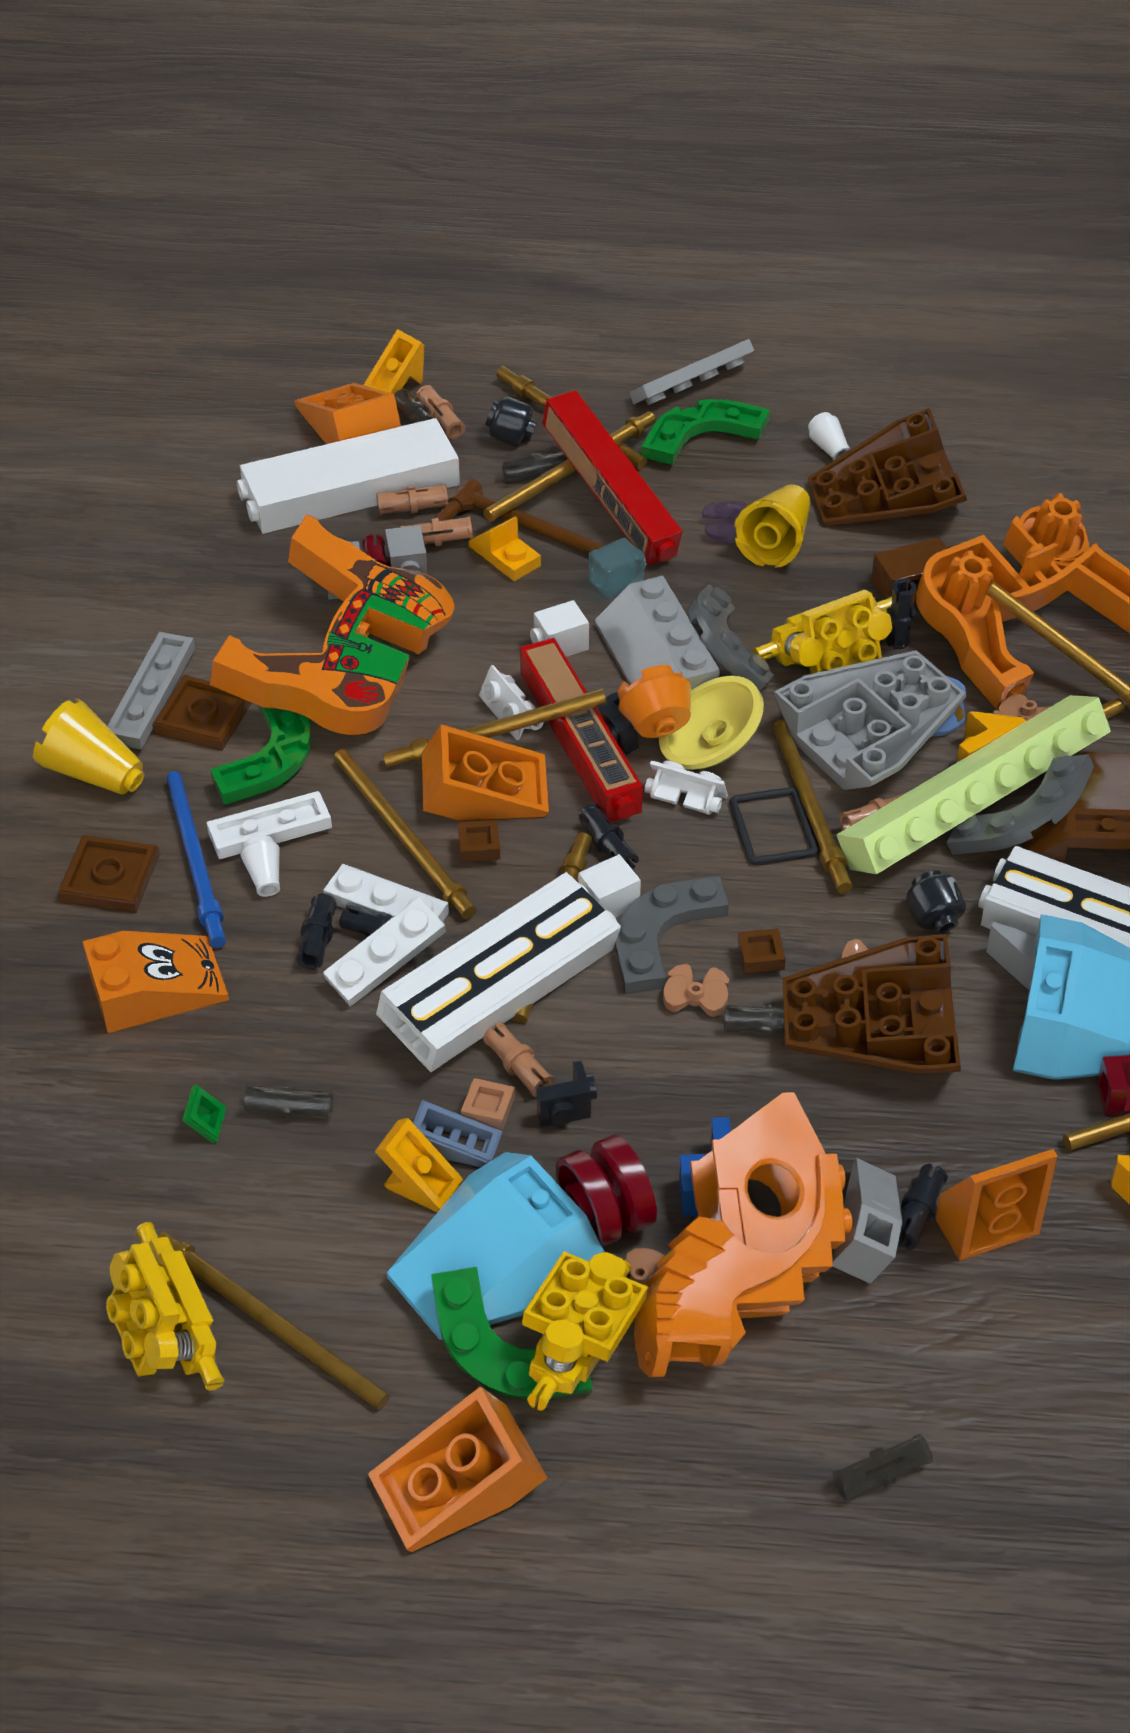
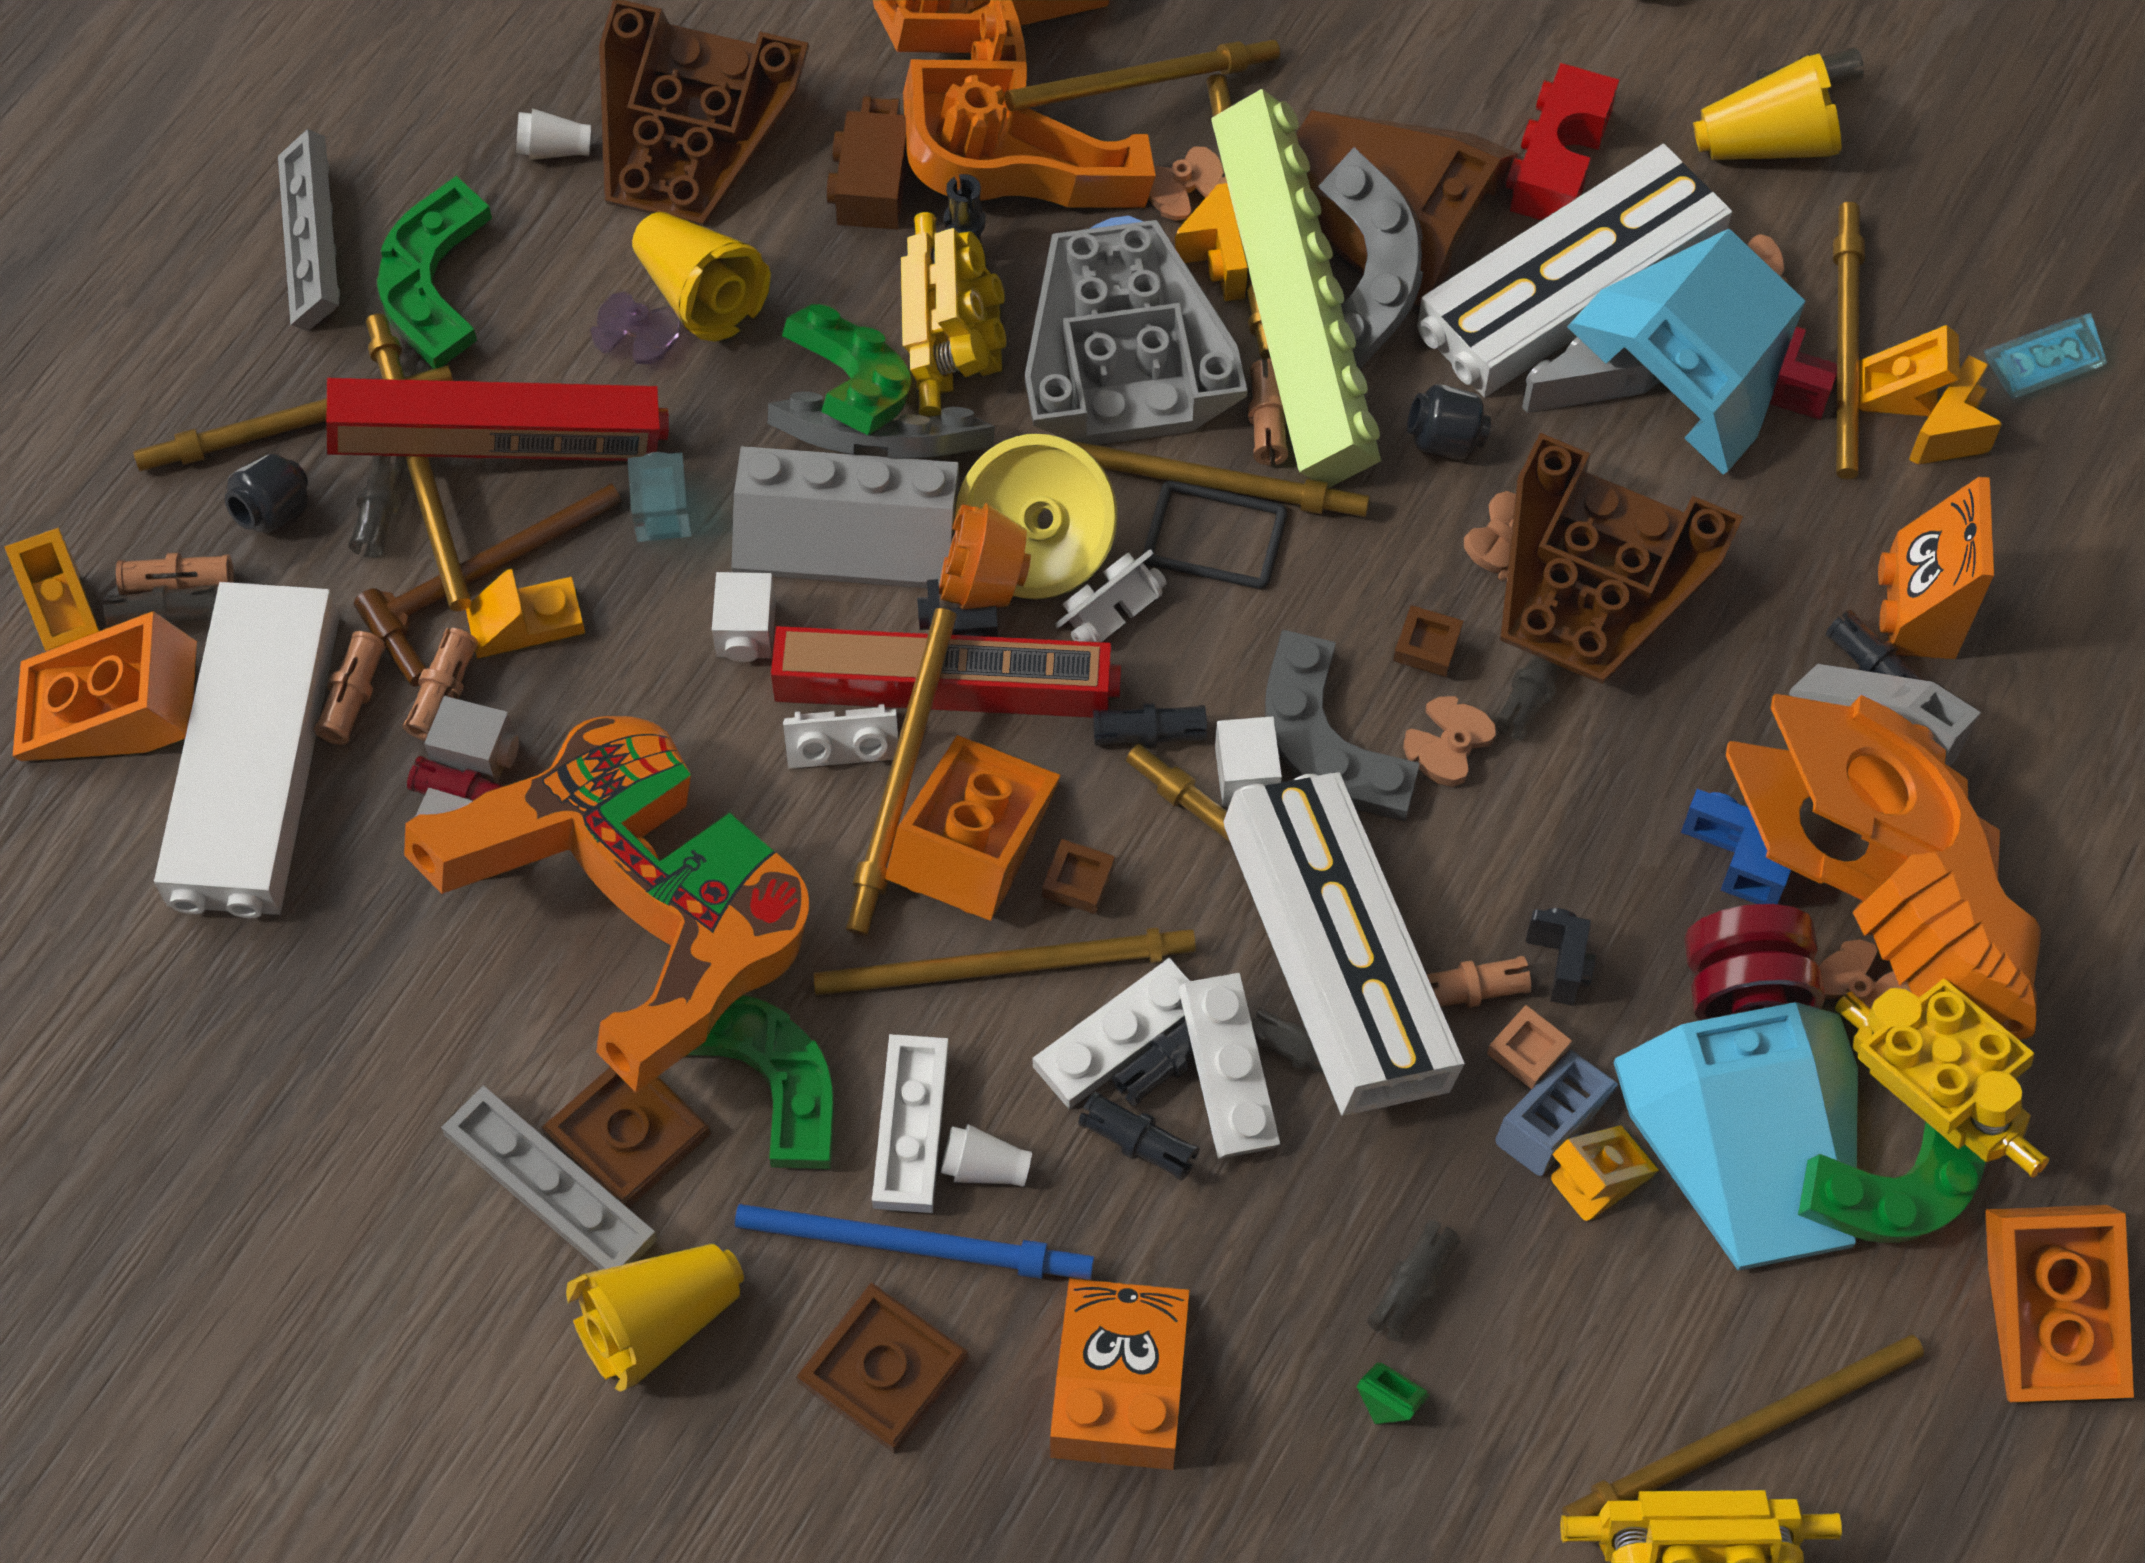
camera: 65 degrees left, 15 degrees up
(751, 620) = (876, 371): none -> green plate

